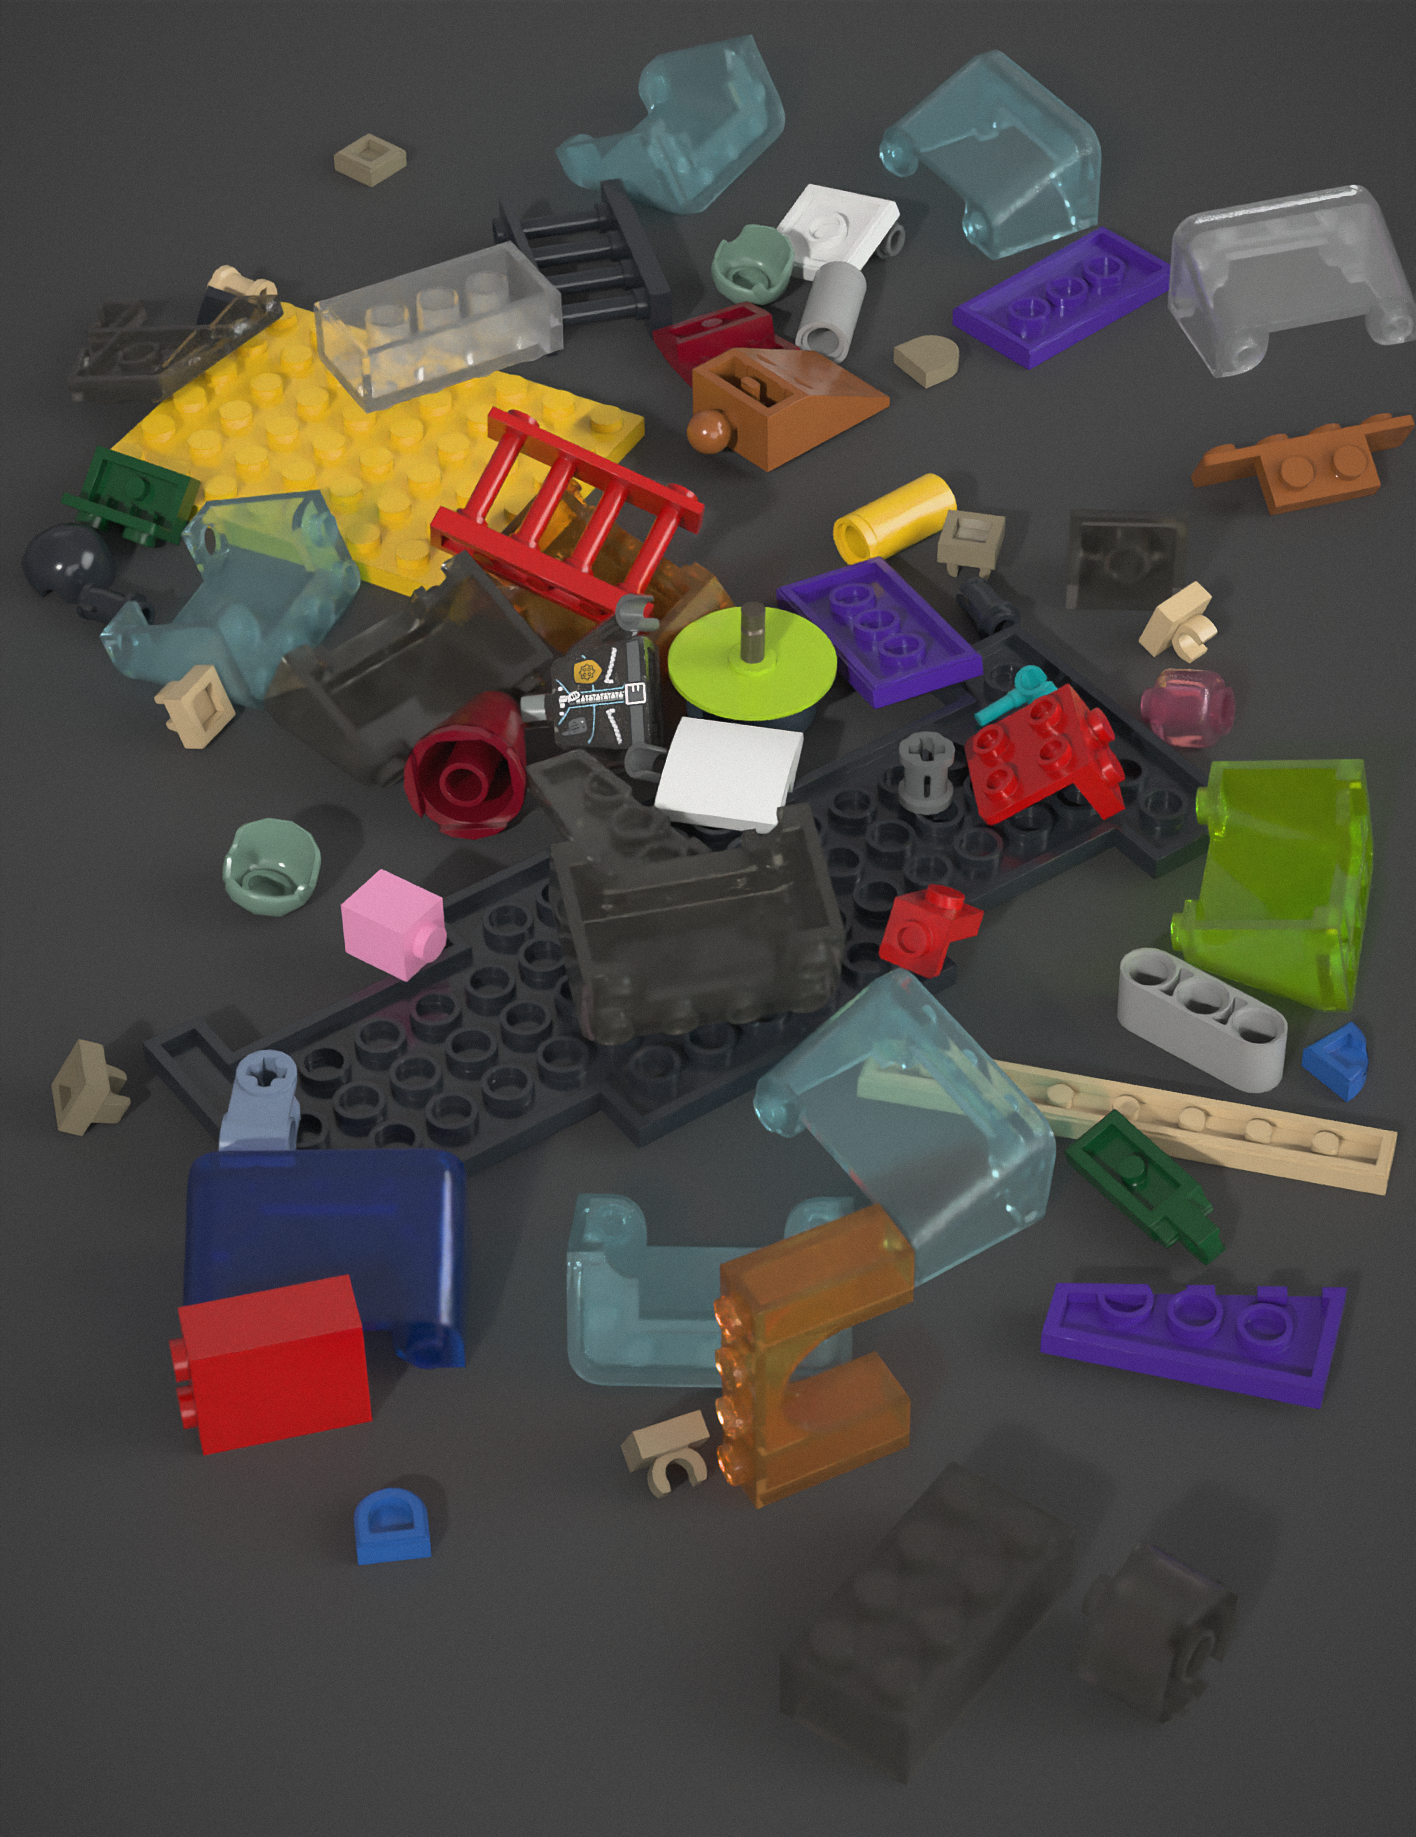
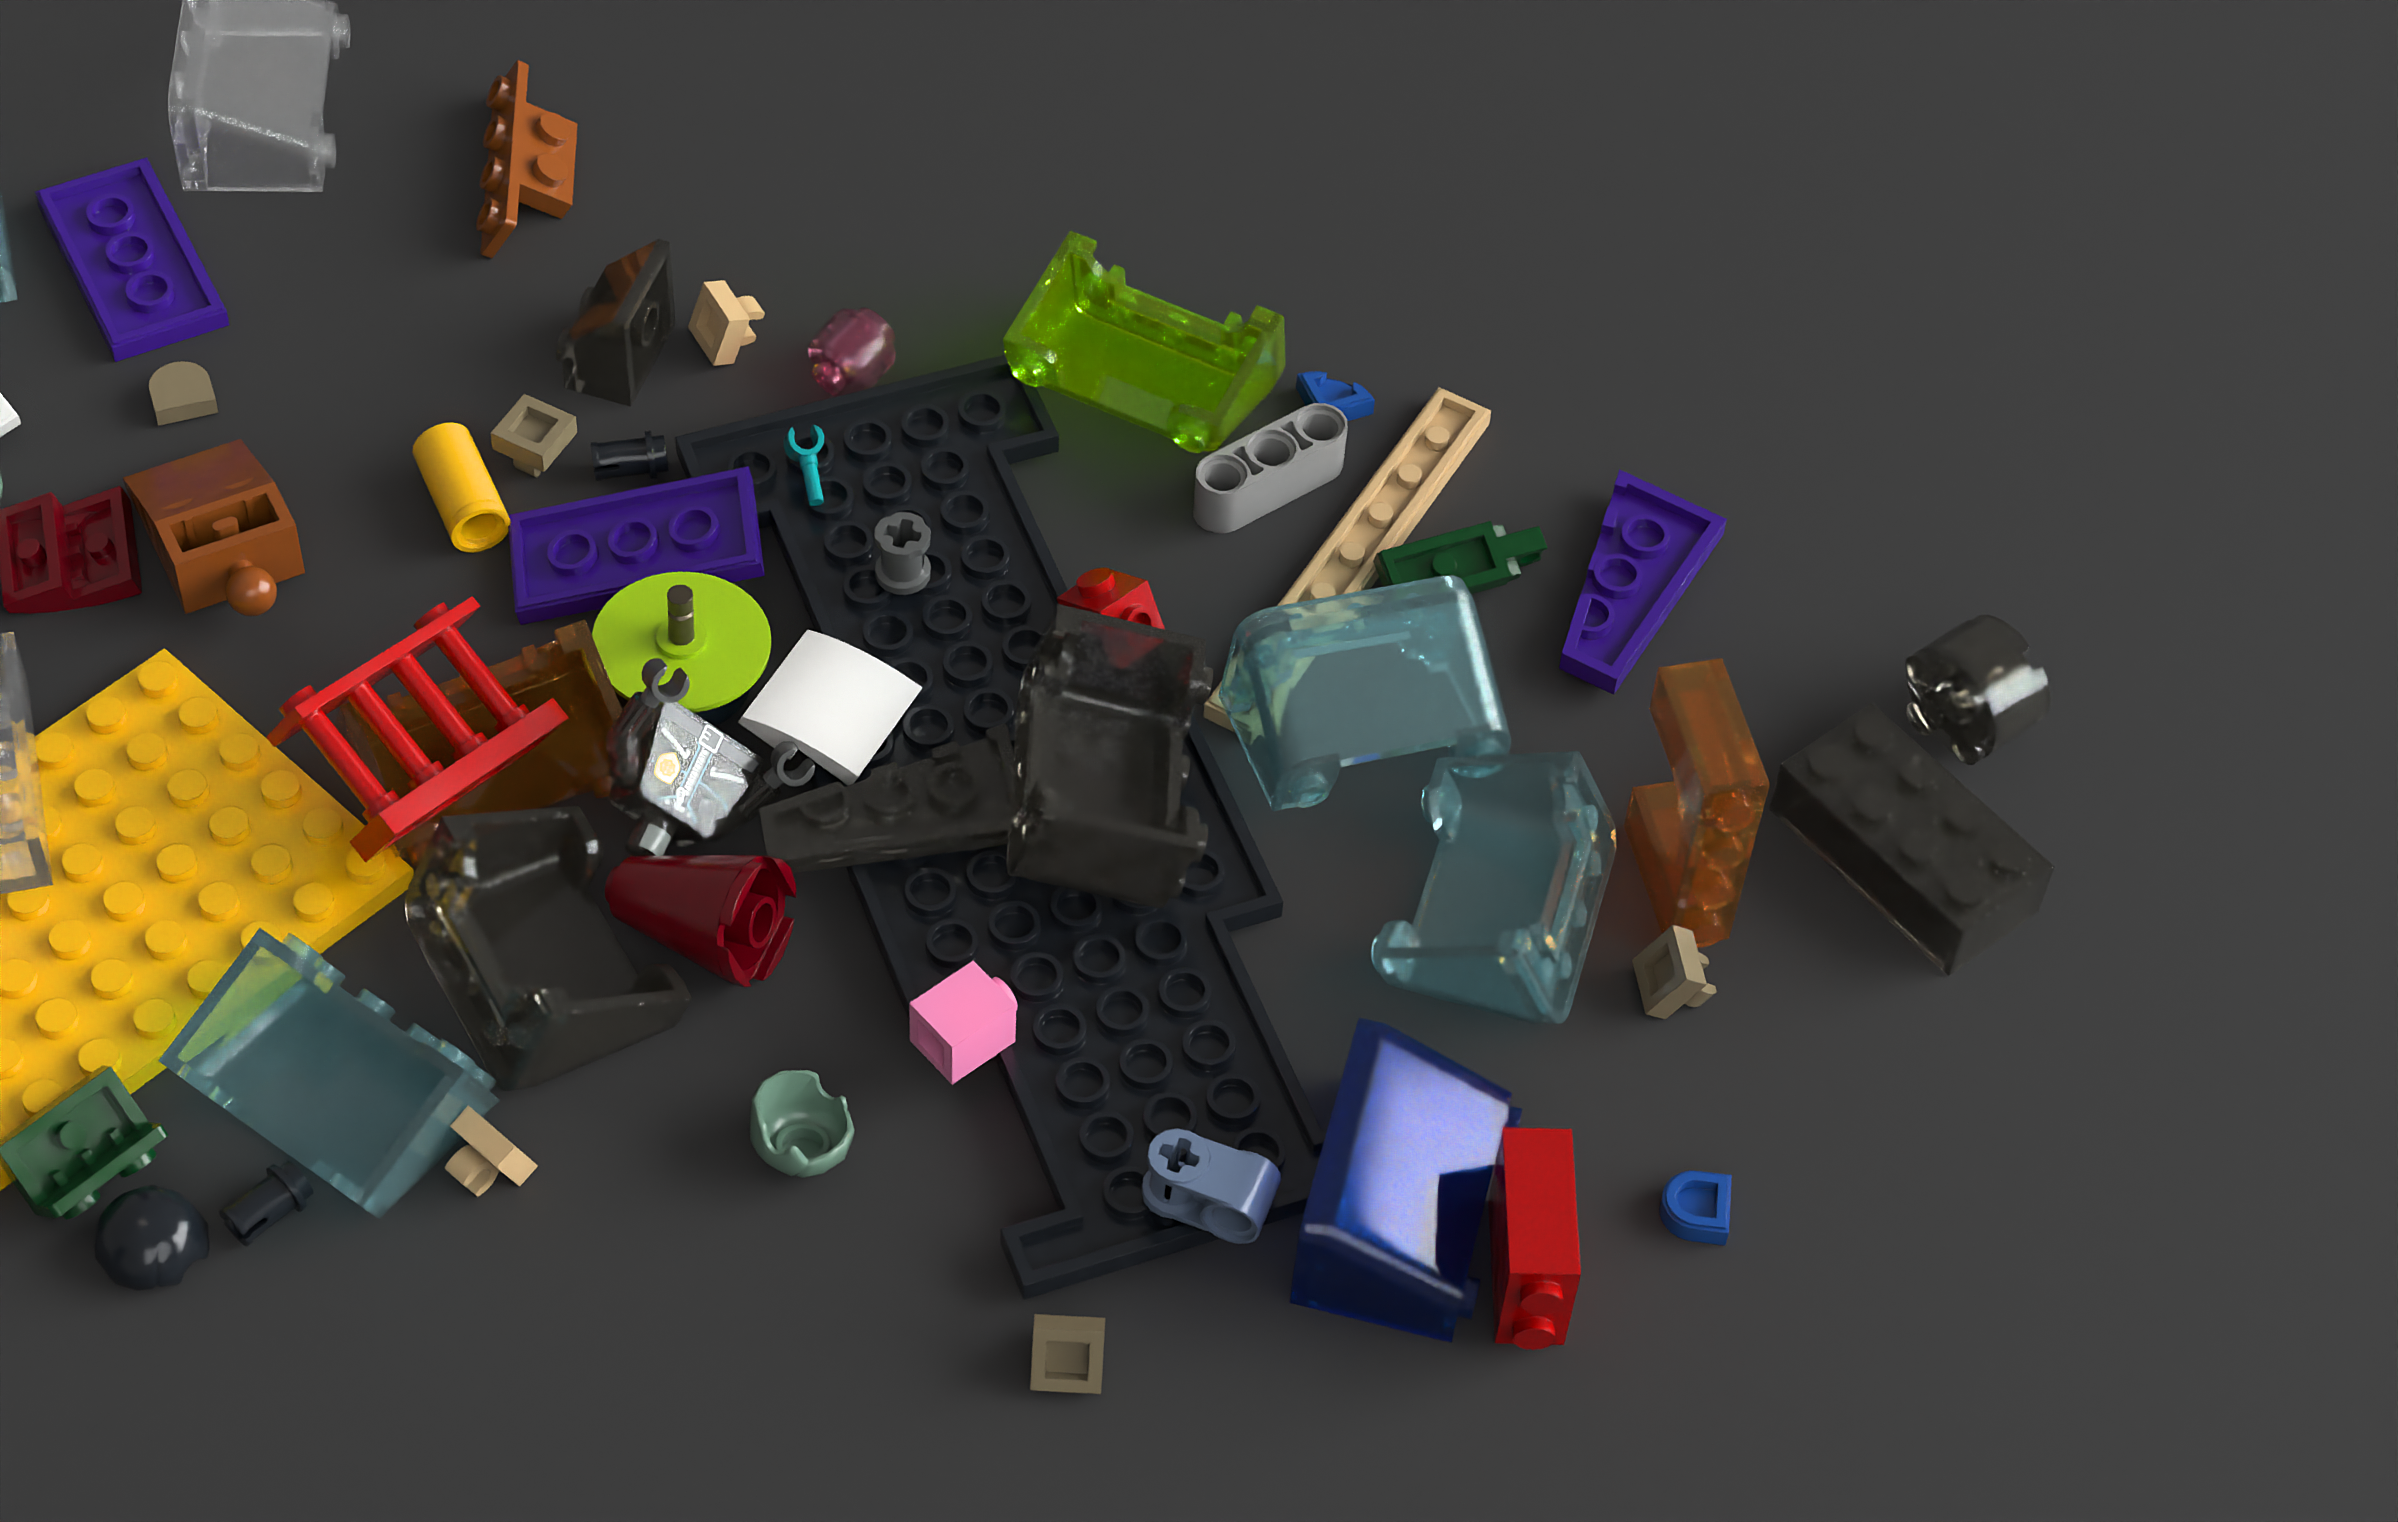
camera: 80 degrees left, 10 degrees up
(832, 310) = (69, 443): light grey pin -> none
(1042, 752) = (918, 465): red bracket -> none

